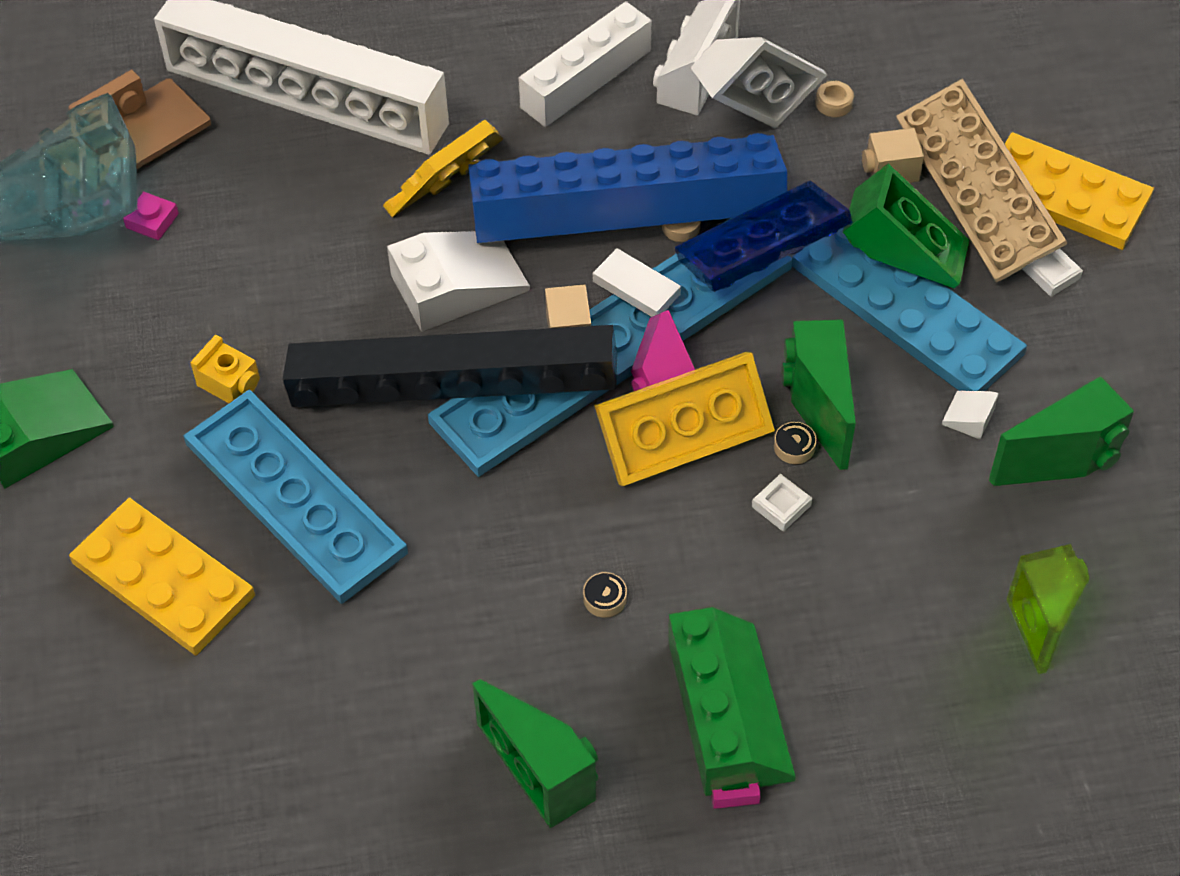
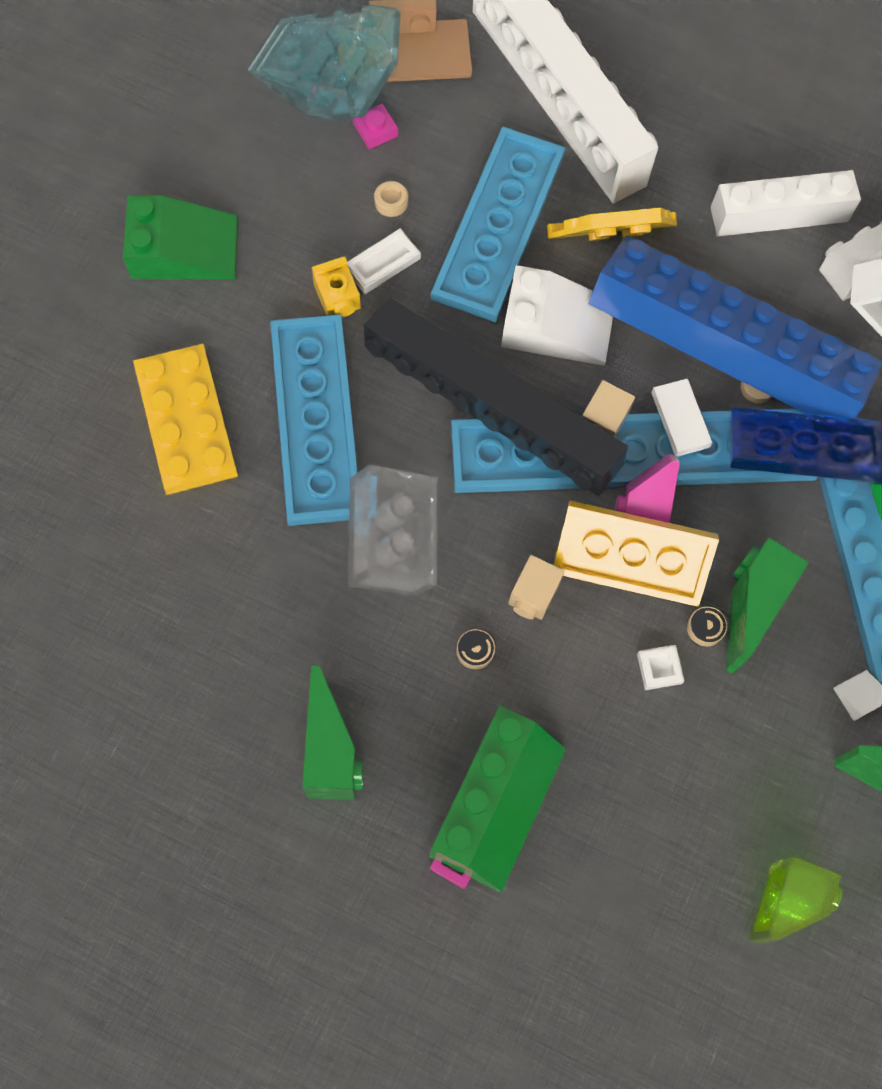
camera: 30 degrees right, 15 degrees up
(216, 268) = (391, 198): none -> tan tile
(252, 321) = (383, 261): none -> white tile
(338, 230) = (498, 224): none -> dark azure plate
(451, 535) = (392, 531): none -> clear brick
(619, 505) = (535, 588): none -> tan brick

